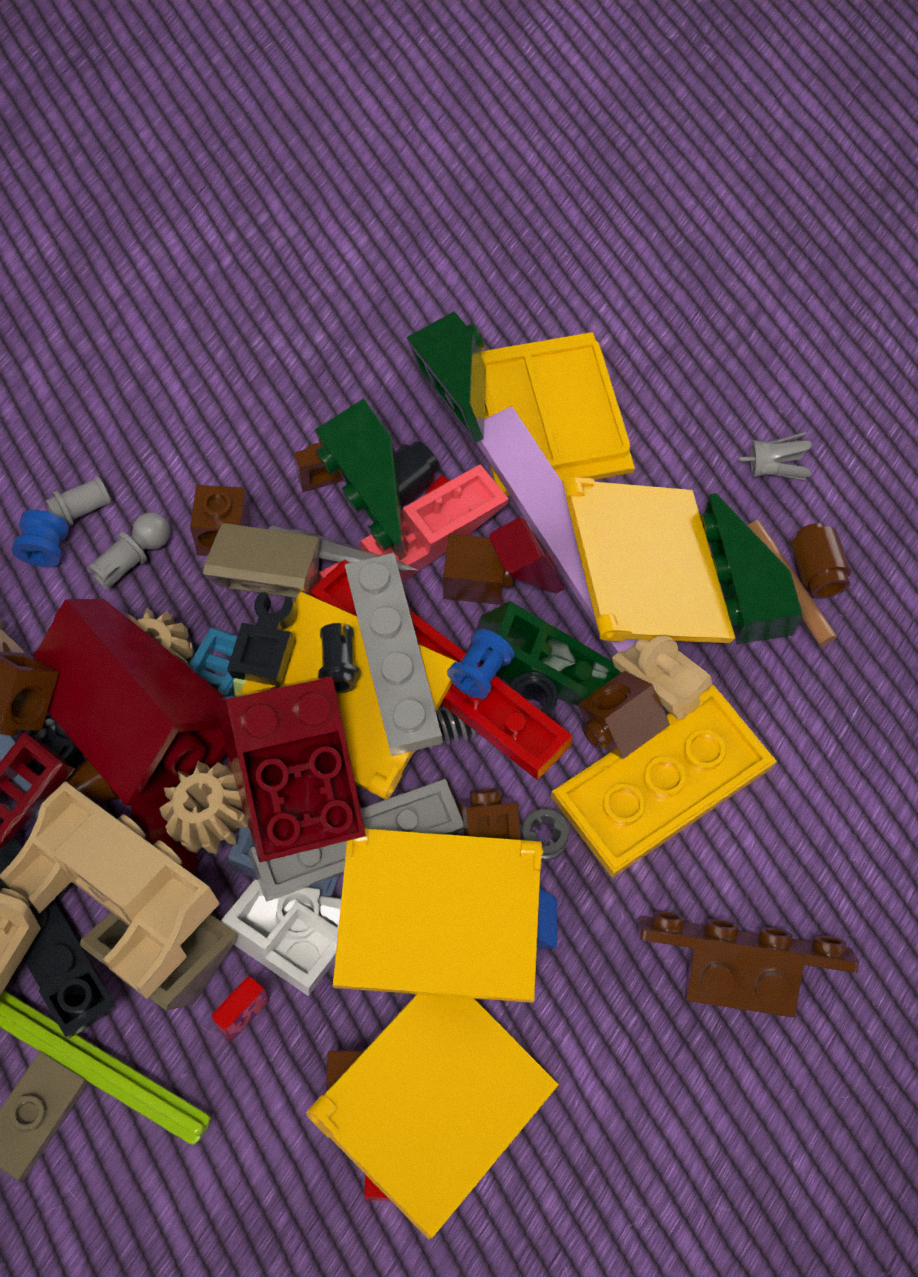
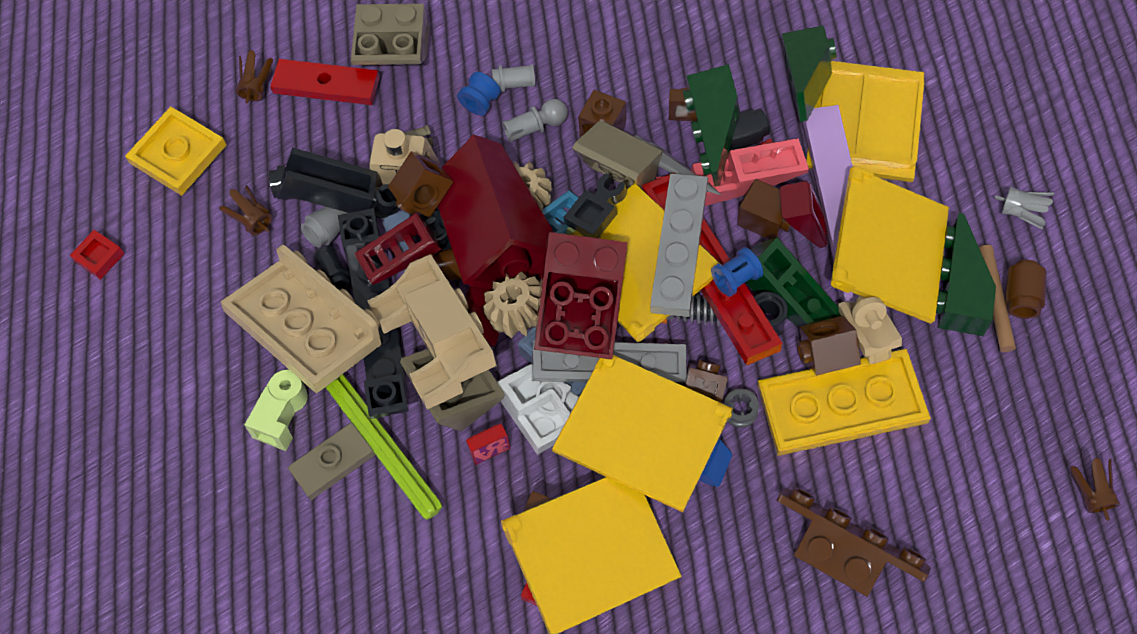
camera: 30 degrees right, 0 degrees up
(338, 657) = (640, 235): black pin -> none

